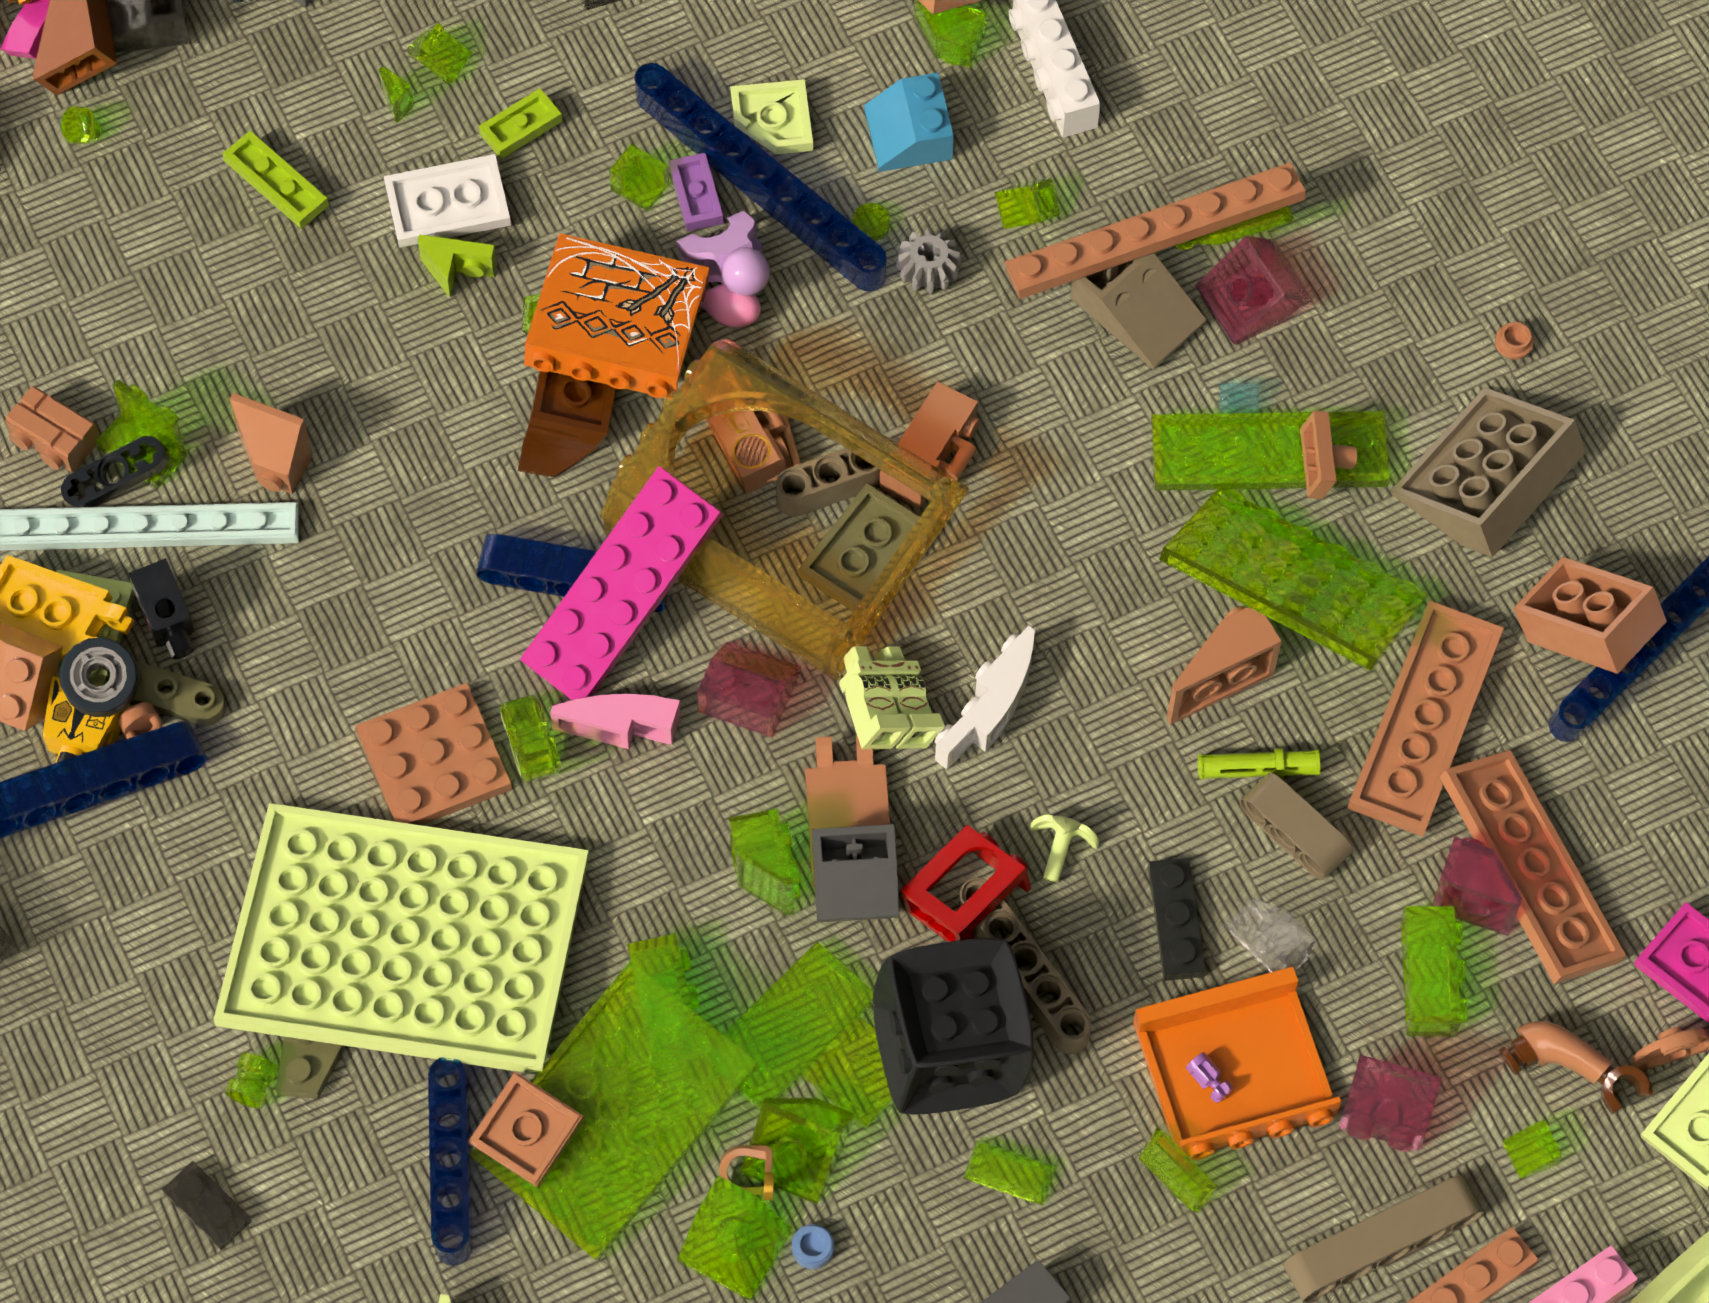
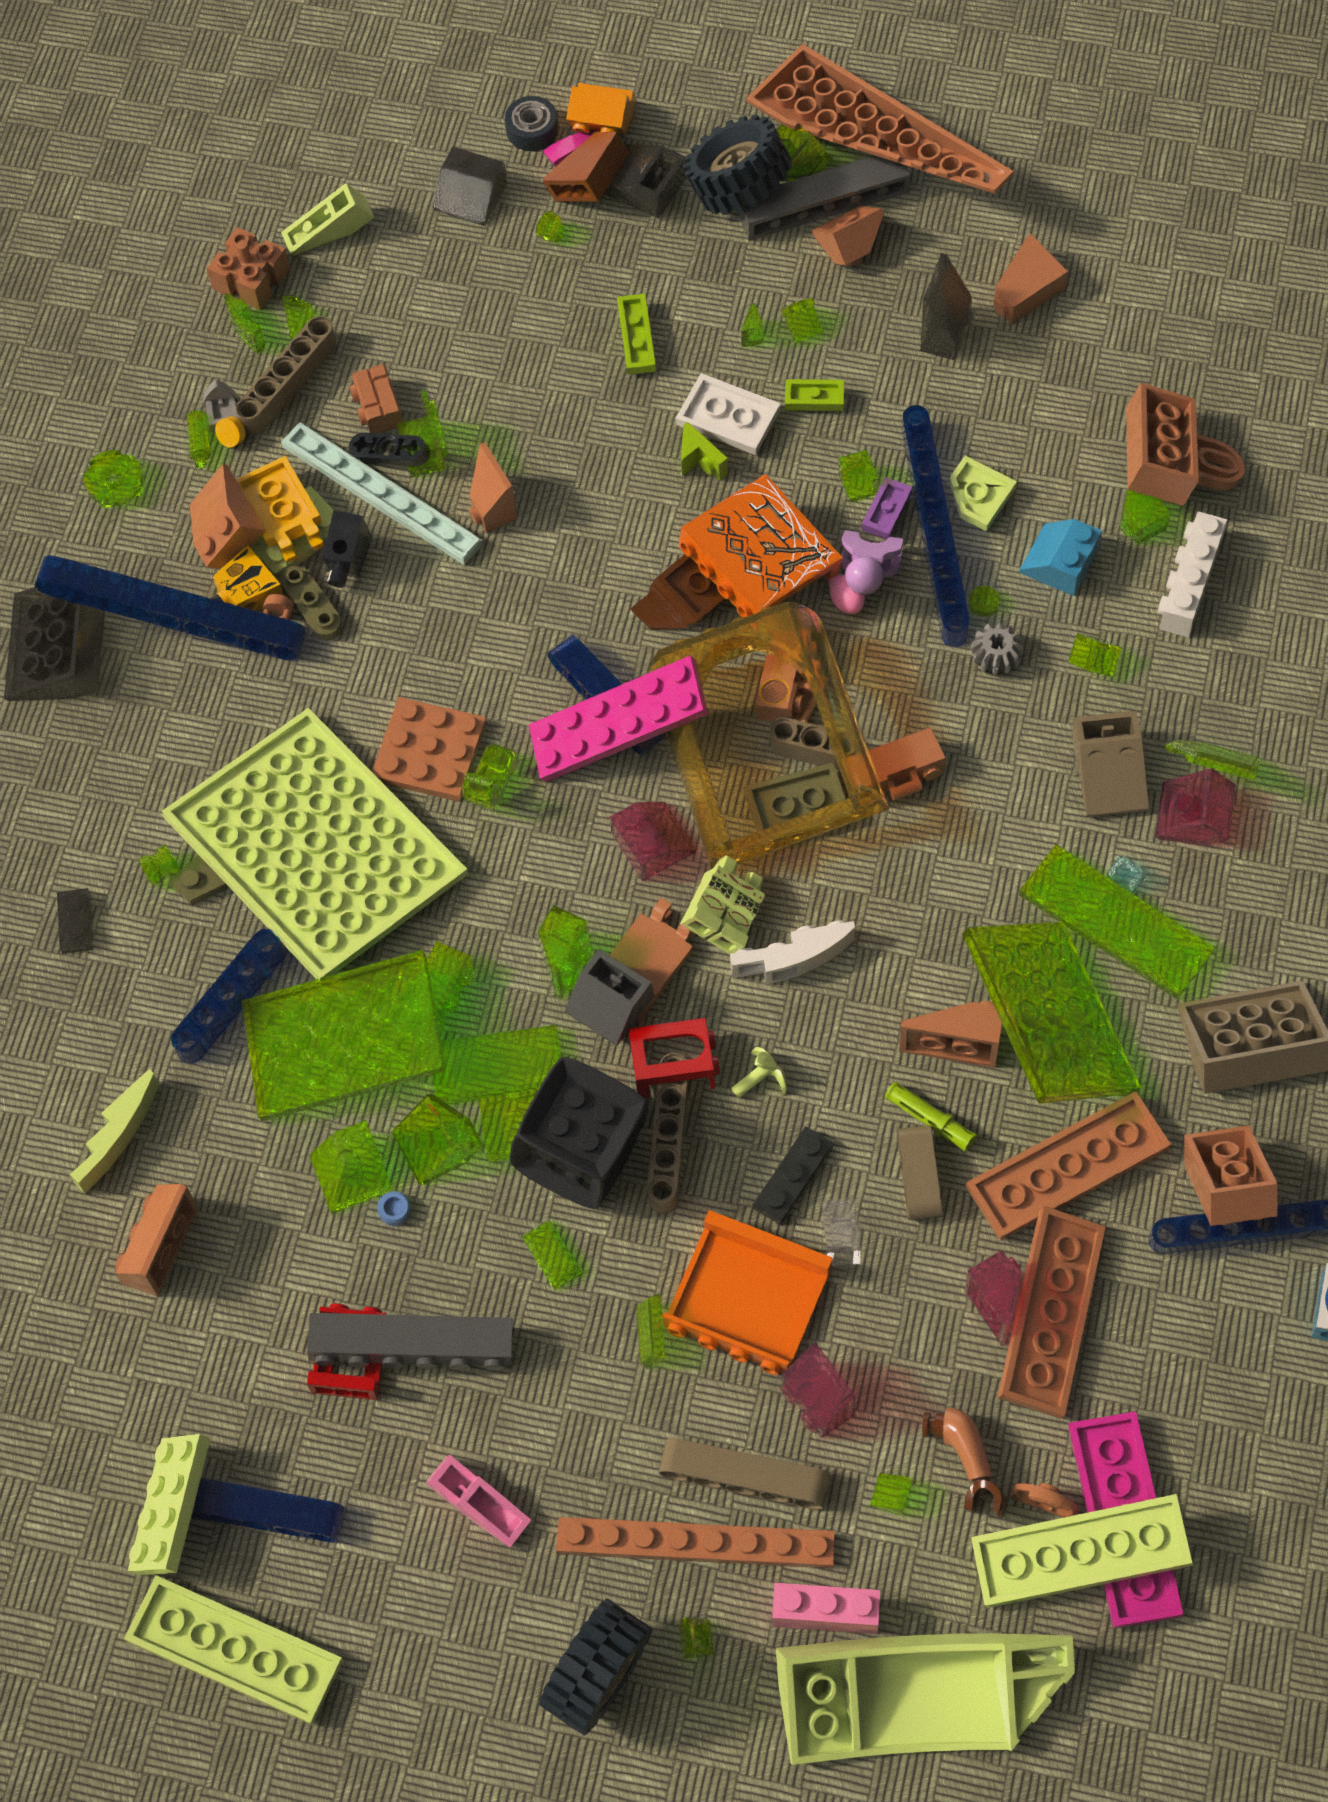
camera: 45 degrees right, 0 degrees up
(93, 655) = (255, 550): wheel -> none
(526, 1130) = (282, 1009): nougat tile -> none
(618, 717) = (556, 802): bright pink slope -> none
(756, 1151) = (391, 1147): nougat piece -> none
(1154, 230) = (1153, 724): nougat plate -> none
(1207, 1075) = (723, 1287): medium lavender piece -> none
(1322, 456) = (1143, 947): nougat tile -> none
(1432, 971) = (925, 1329): clear neon green brick -> none

